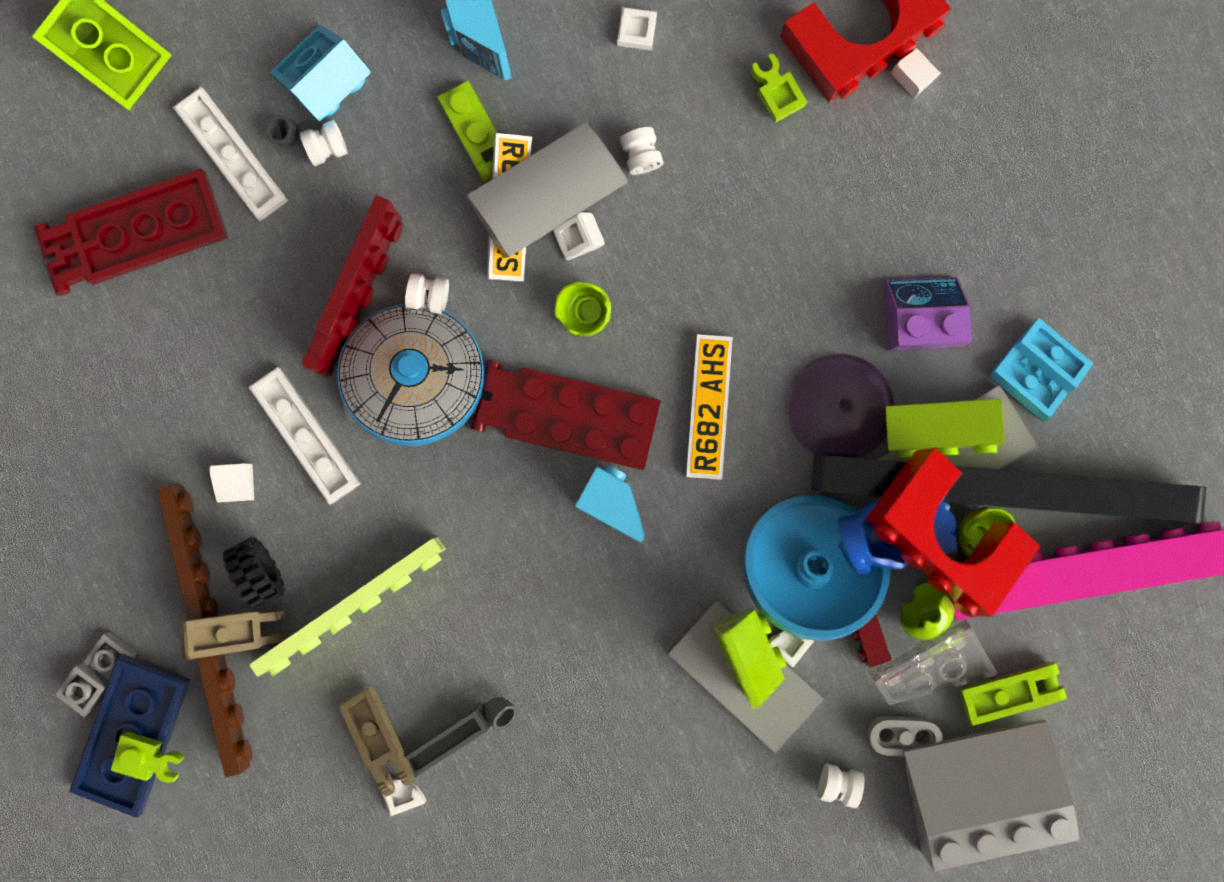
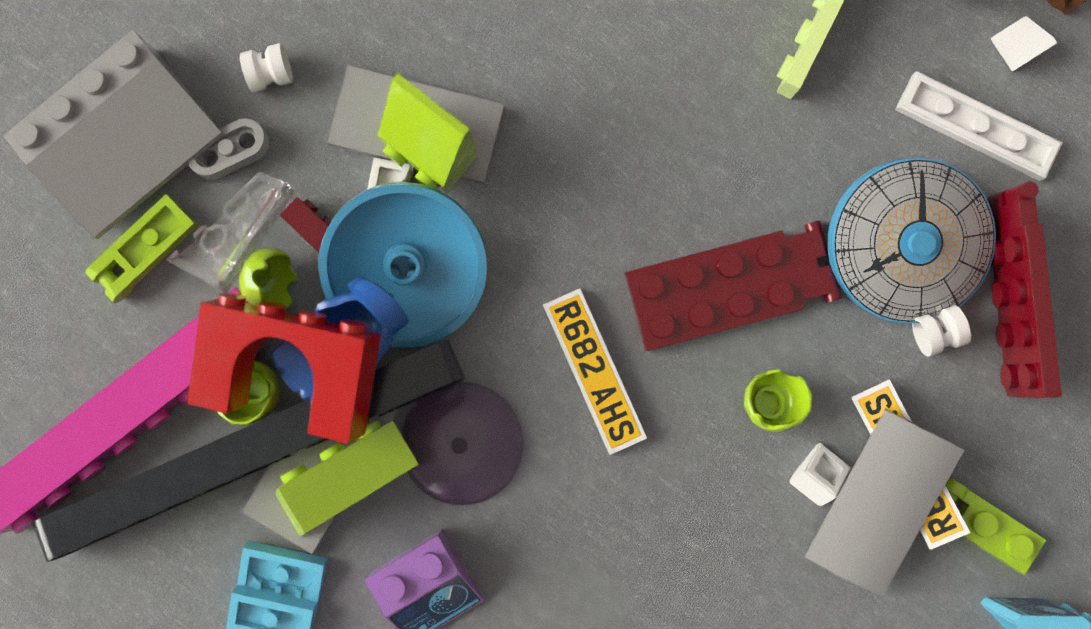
camera: 155 degrees right, 0 degrees up
(612, 502) = (642, 217): medium azure slope -> none
(642, 153) = (805, 595): white wheel -> none

